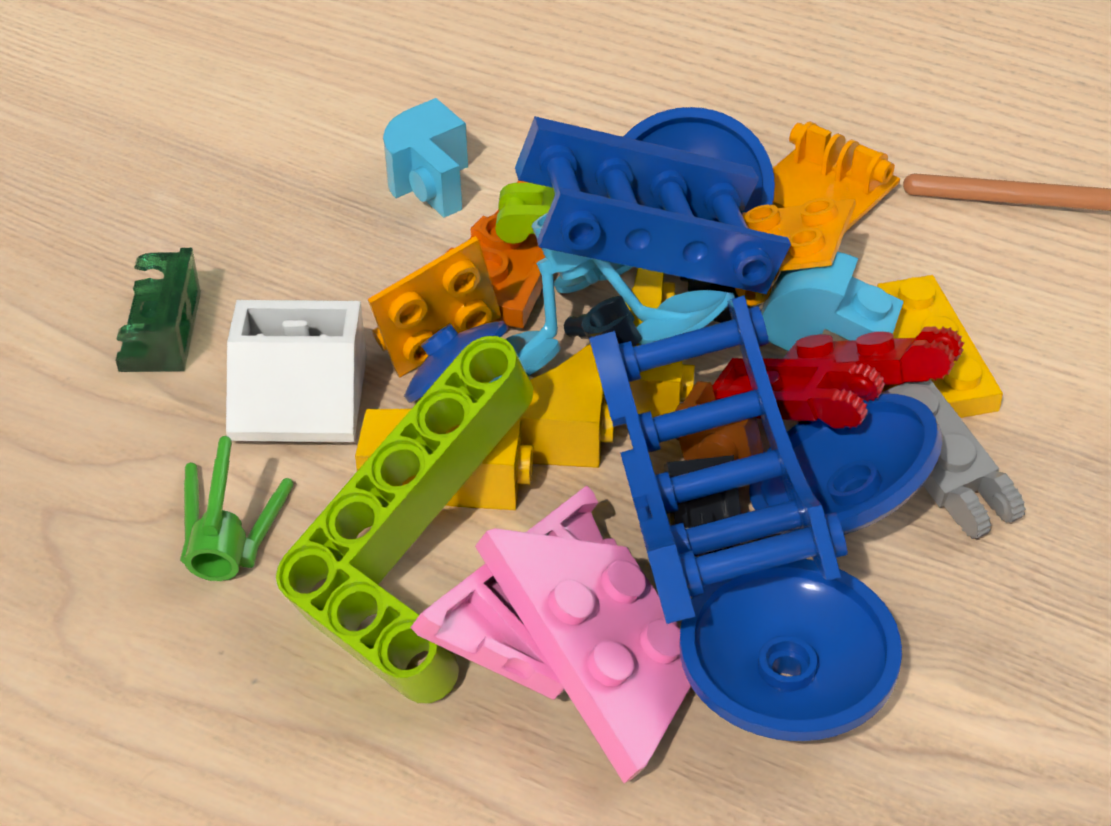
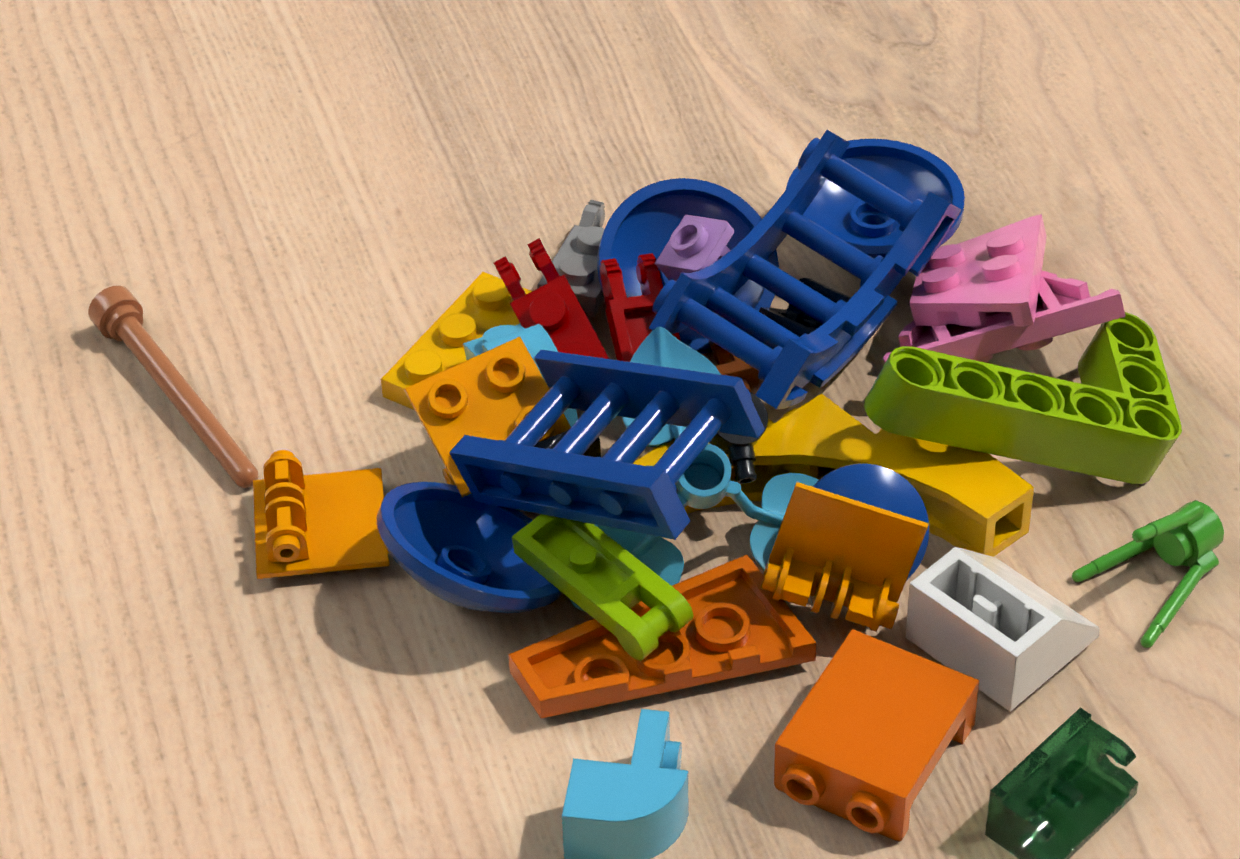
camera: 135 degrees left, 0 degrees up
(314, 253) = (873, 733): none -> orange panel
(818, 421) = (694, 245): none -> lavender bracket

